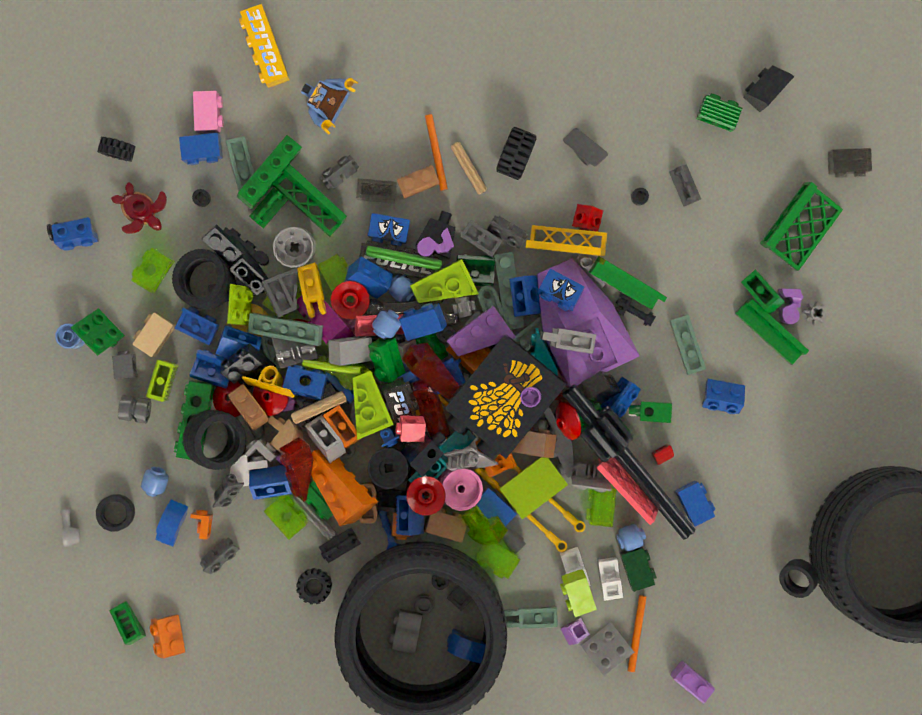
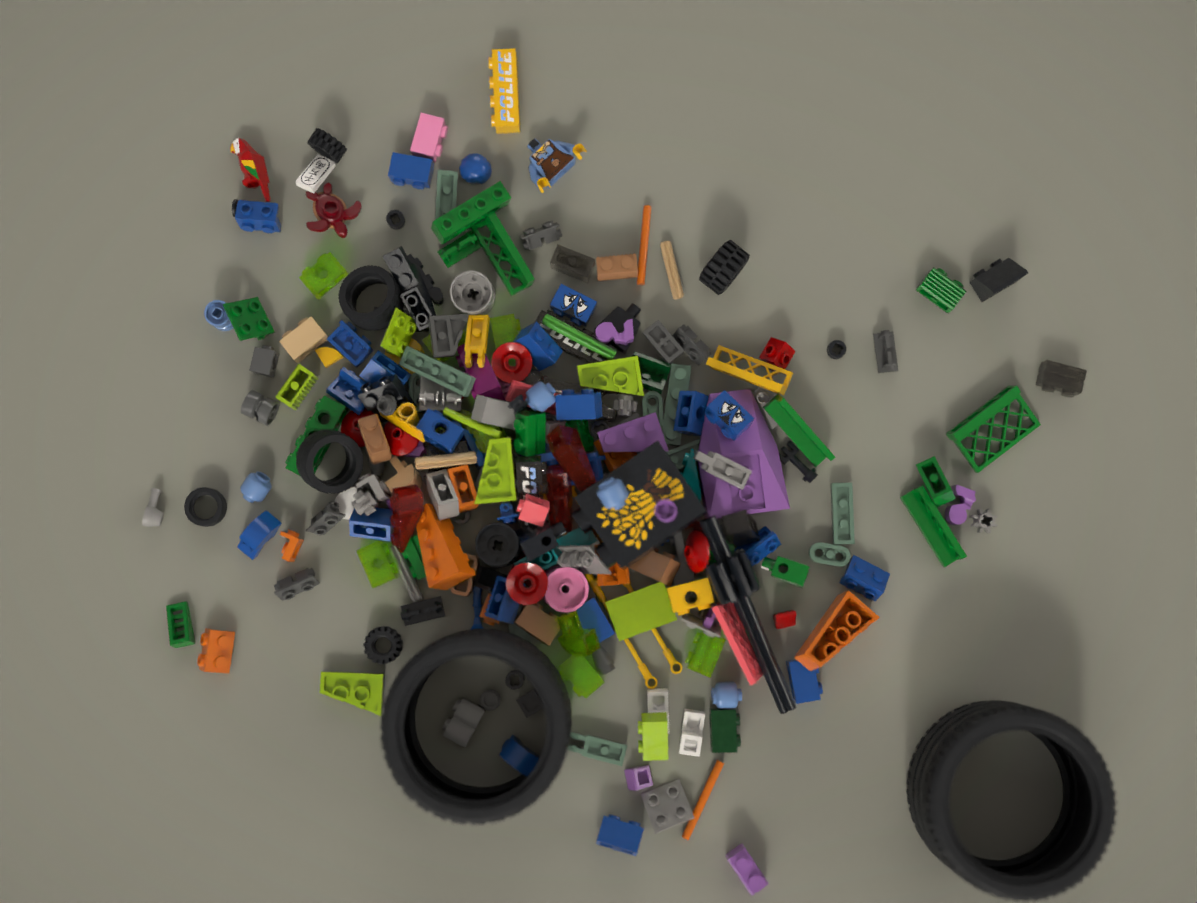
camera: 15 degrees right, 5 degrees down
(53, 188) = (252, 166): none -> red animal
(114, 177) = (315, 173): none -> white tile
(180, 342) = (328, 355): none -> yellow tile
(250, 374) = (386, 405): none -> dark grey plate
(257, 467) = (364, 502): none -> light grey gear
(259, 128) = (475, 169): none -> blue hair
(301, 631) = (358, 689): none -> lime wing
(368, 338) = (518, 404): none -> black bush
(401, 289) = (567, 368): medium blue head -> none
(478, 395) = (612, 493): none -> medium blue head
(562, 461) = (699, 587): none -> yellow brick
(574, 687) = (620, 835): none -> blue brick
(585, 148) = (795, 284): dark grey piece -> none
(596, 475) = (709, 618): none -> medium lavender tile
(685, 384) = (828, 554): none -> sand green plate
(710, 452) = (836, 629): none -> orange wedge
(796, 590) = (879, 801): black tyre -> none

